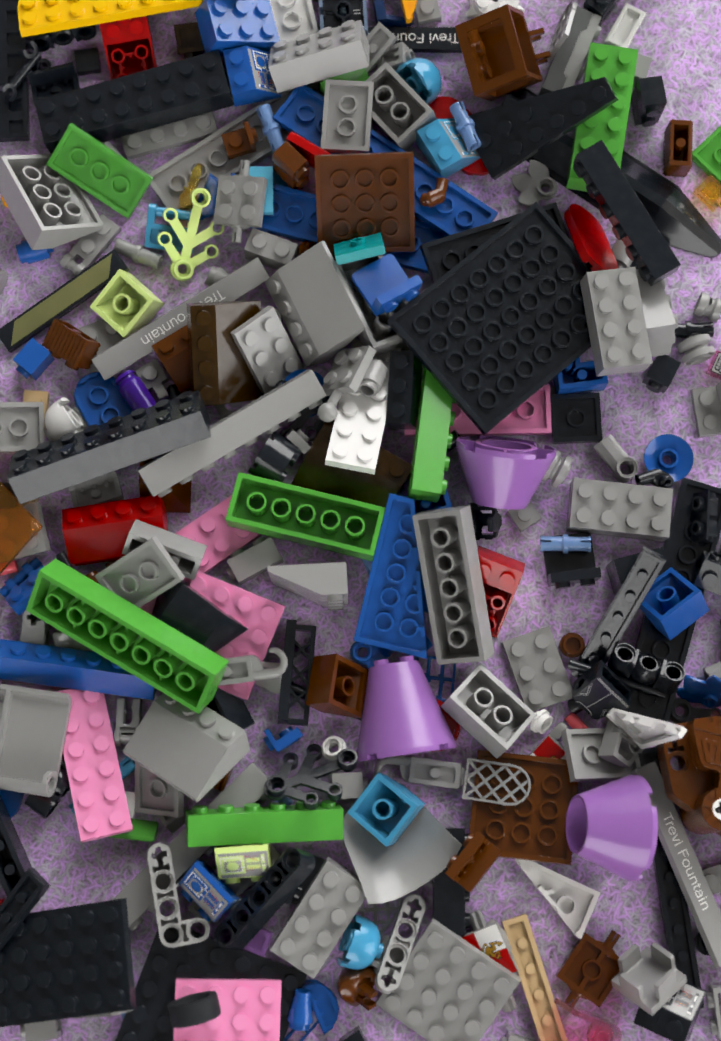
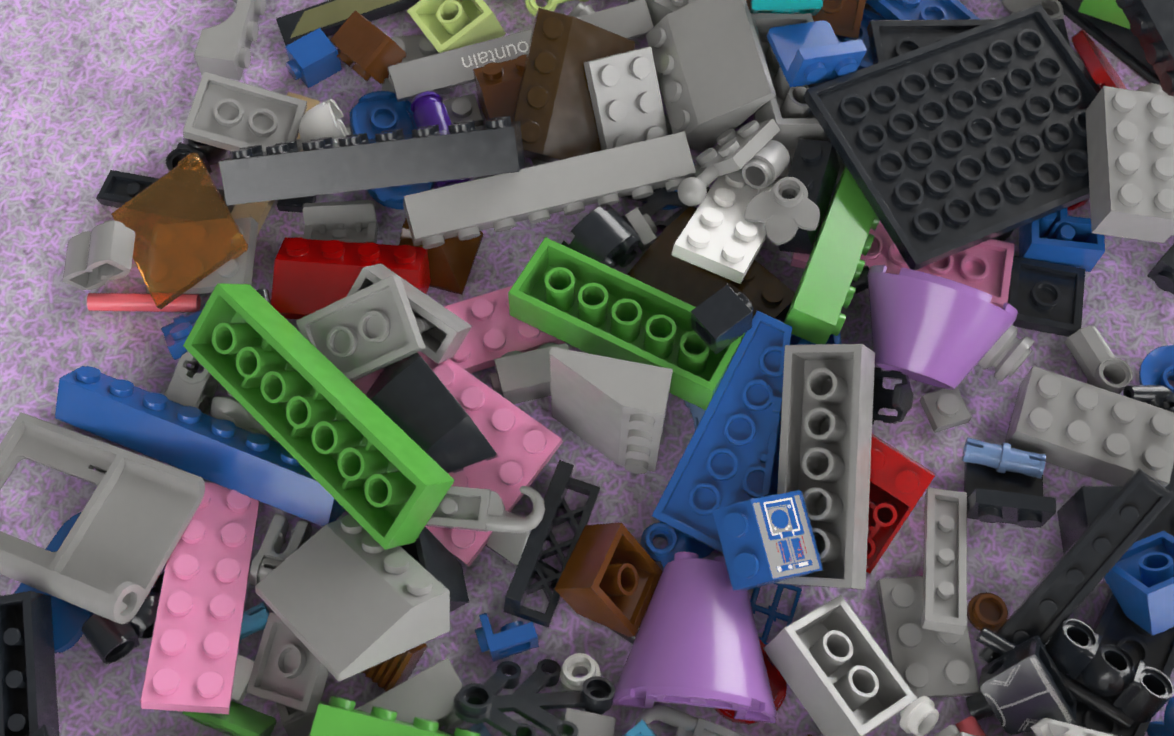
camera: 15 degrees right, 15 degrees down
(369, 507) = (722, 318): none -> black brick
(391, 418) = (783, 215): none -> light grey plate
(428, 644) = (767, 540): none -> blue slope
(539, 621) = (945, 561): none -> light grey plate

